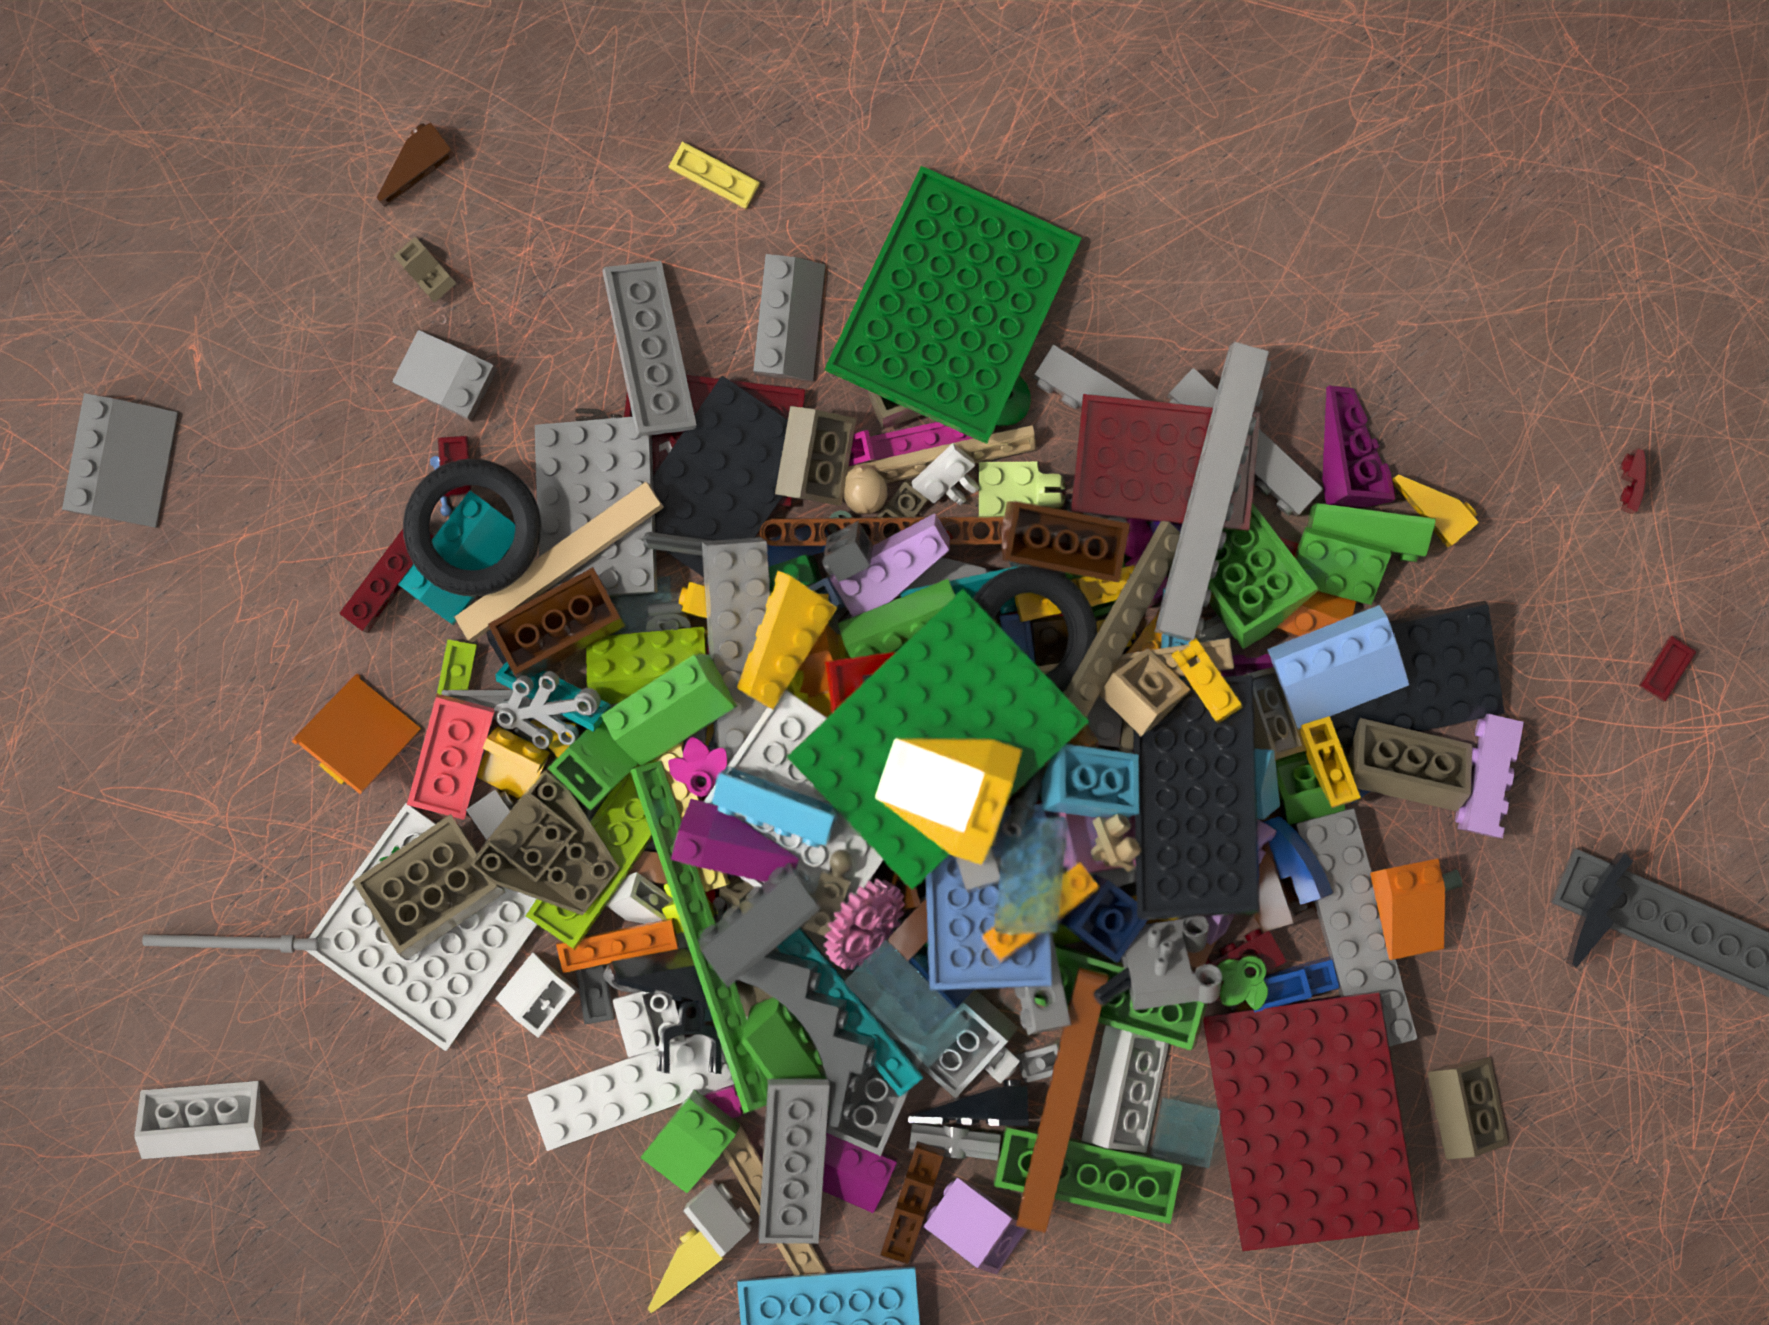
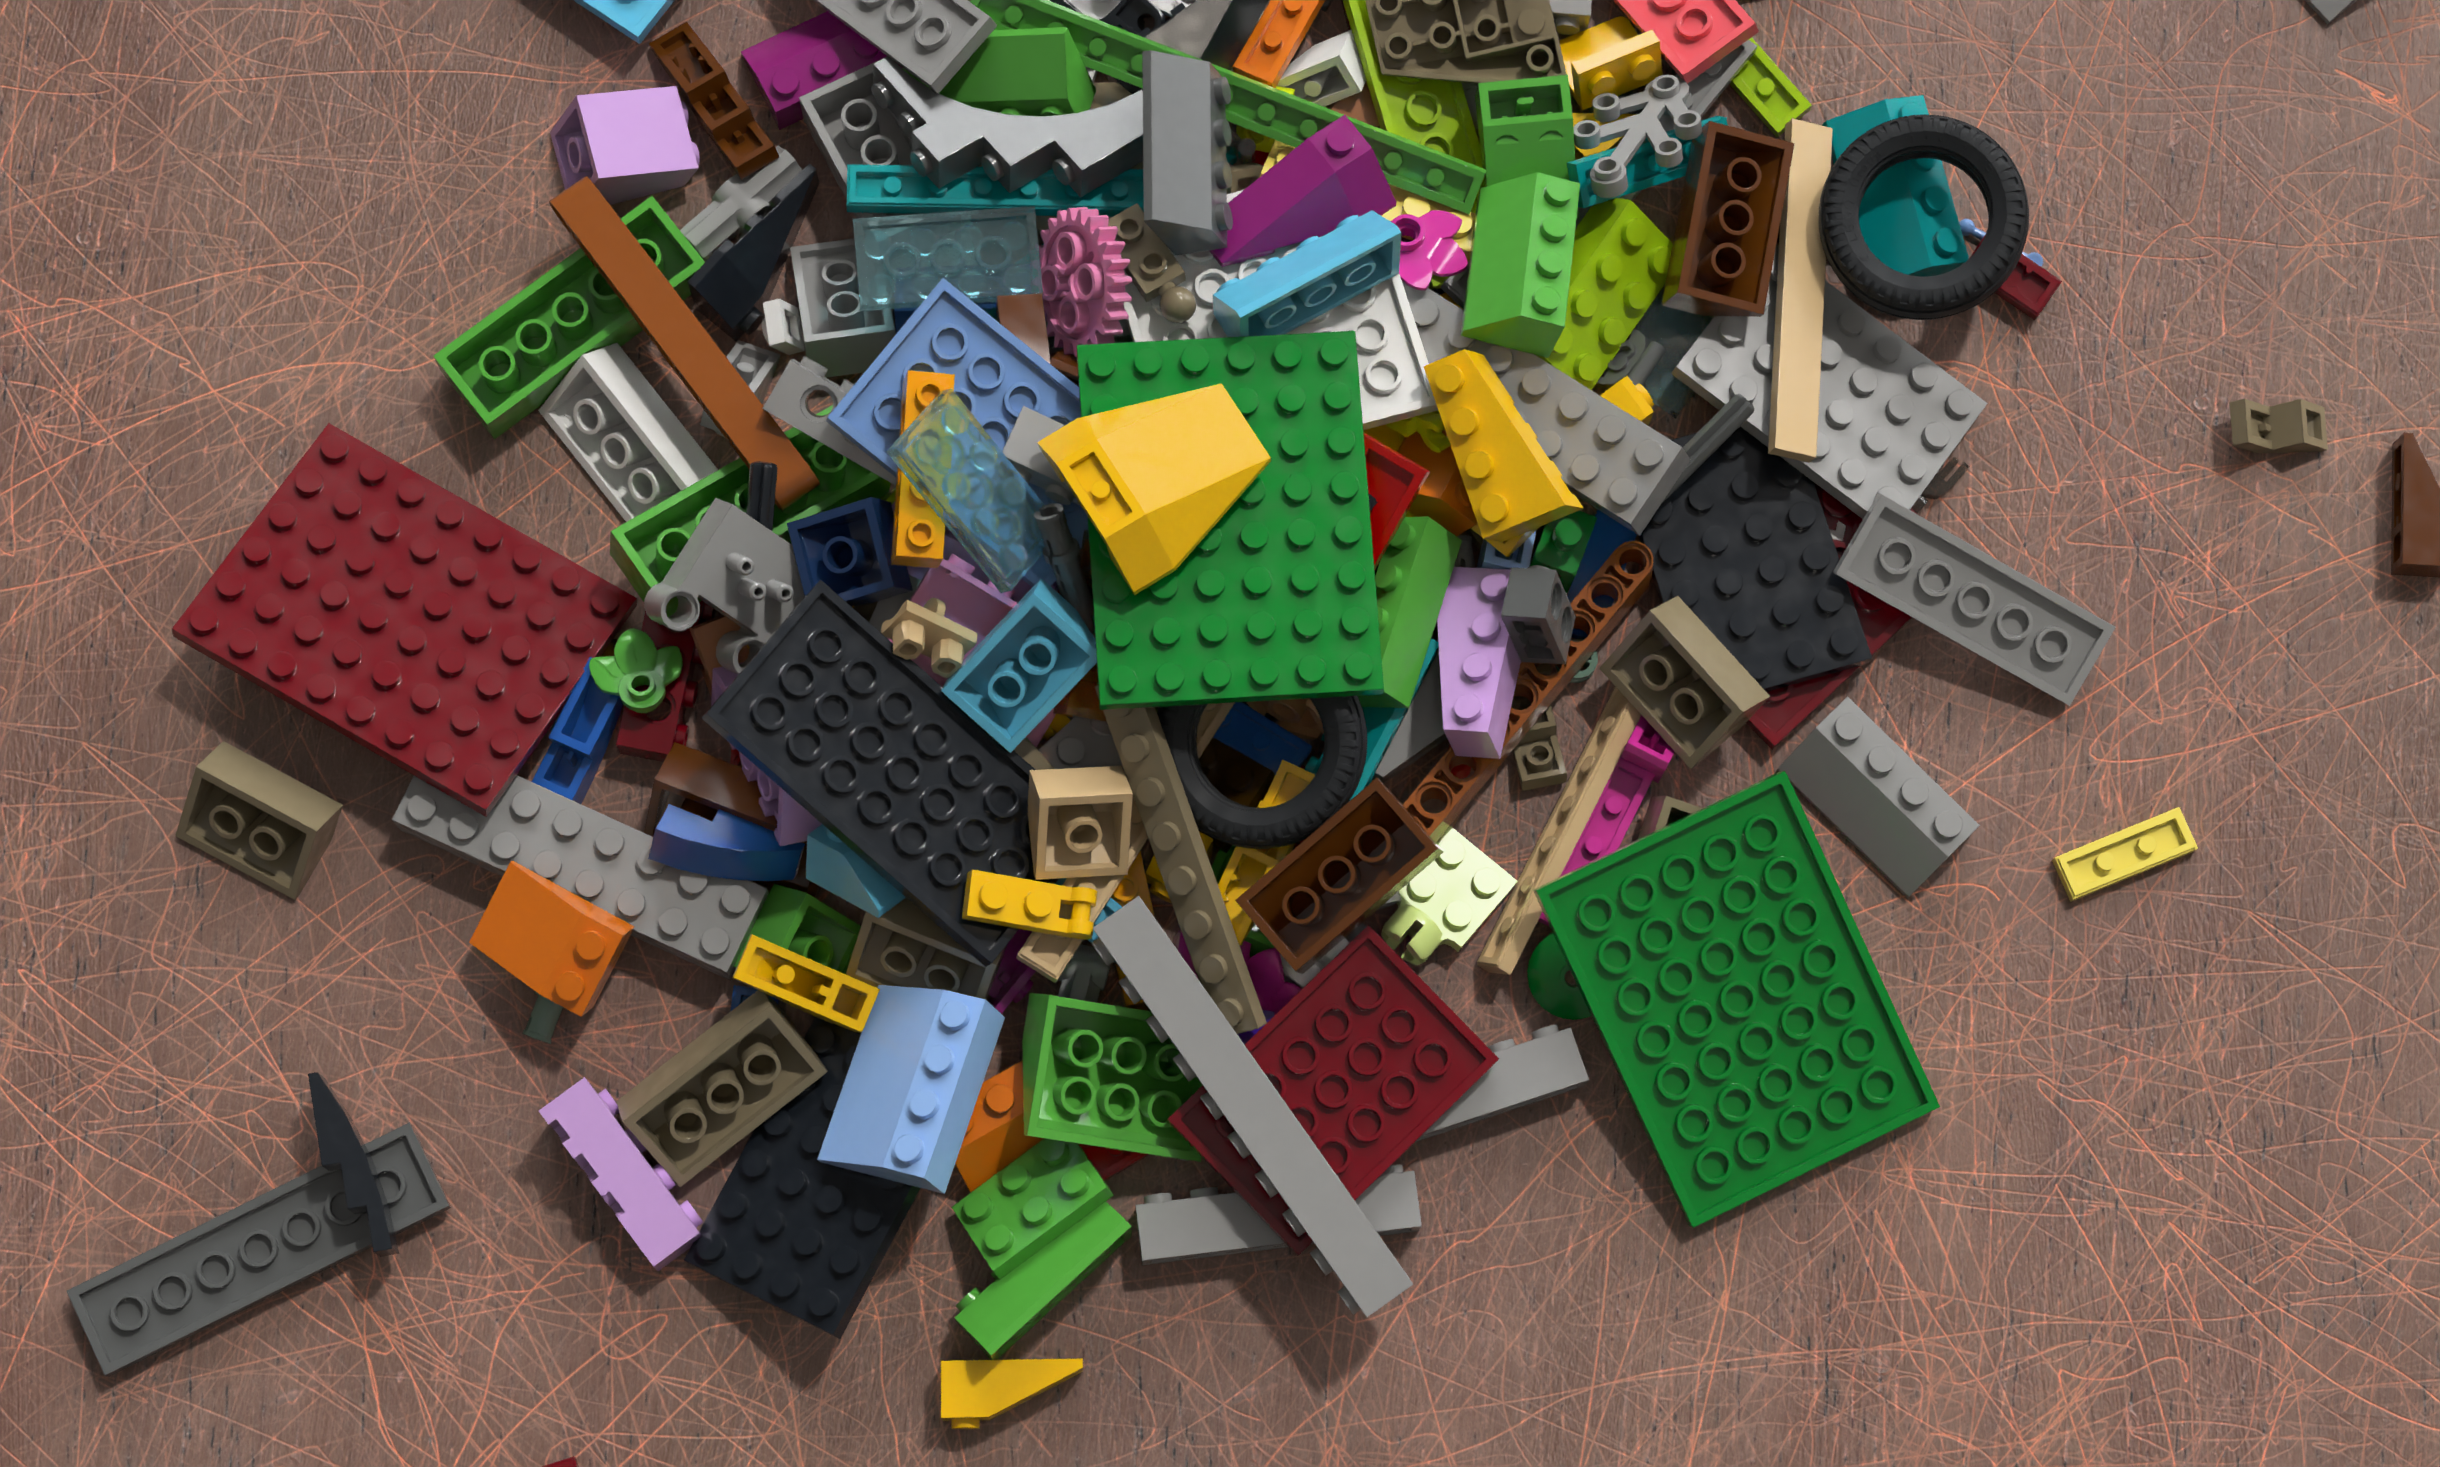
camera: 120 degrees right, 10 degrees down
(379, 586) = (1935, 71): dark red brick -> none
(445, 375) = (2128, 350): light grey slope -> none
(865, 490) = (1594, 713): tan hair -> none
(944, 474) = (1537, 825): white hinge -> none
(1185, 1132) = (521, 471): clear light blue plate -> none
(1350, 459) = (1145, 1330): magenta wedge -> none

